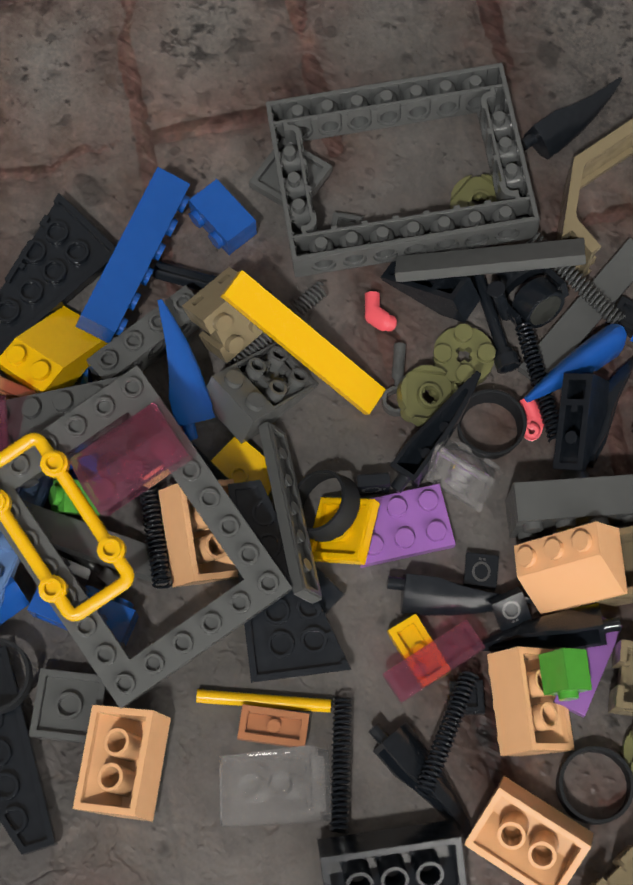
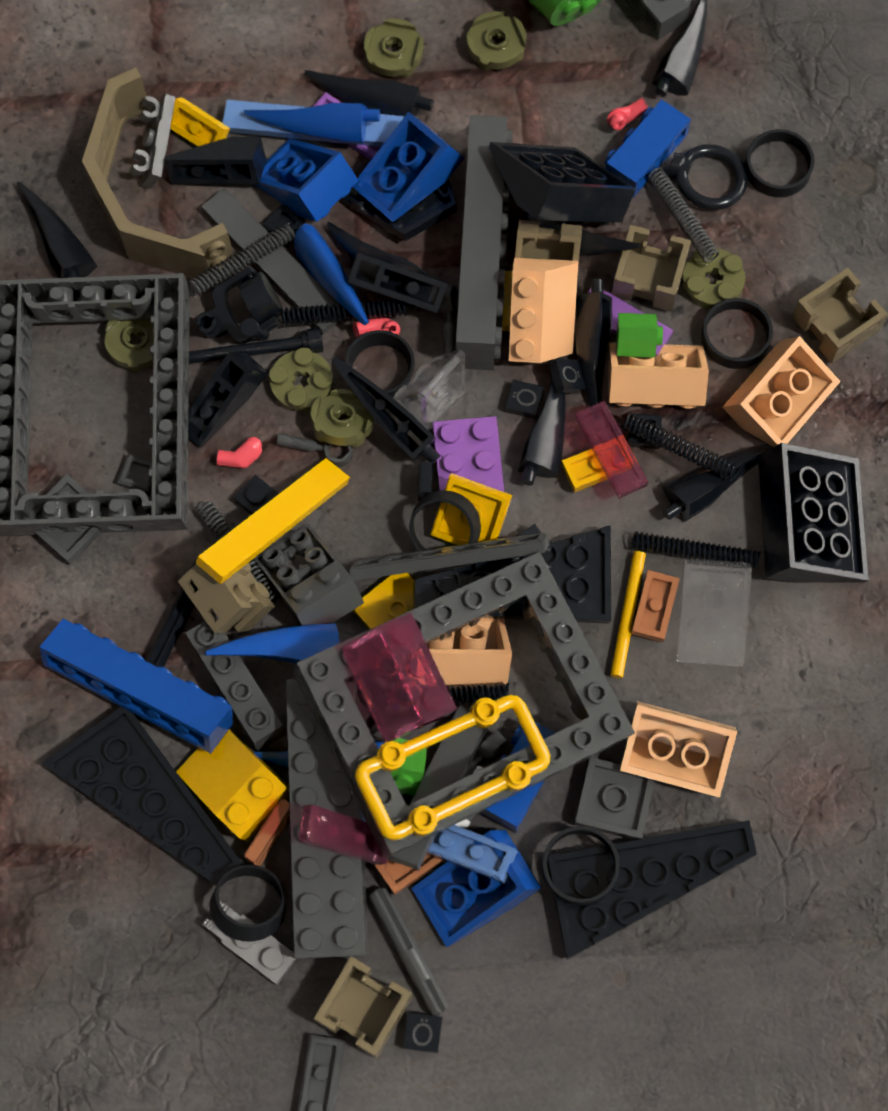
camera: 80 degrees left, 0 degrees up
(222, 217) = (105, 593): blue brick -> none
(339, 332) = (255, 495): none -> black plate
(490, 260) = (215, 329): dark grey tile -> none

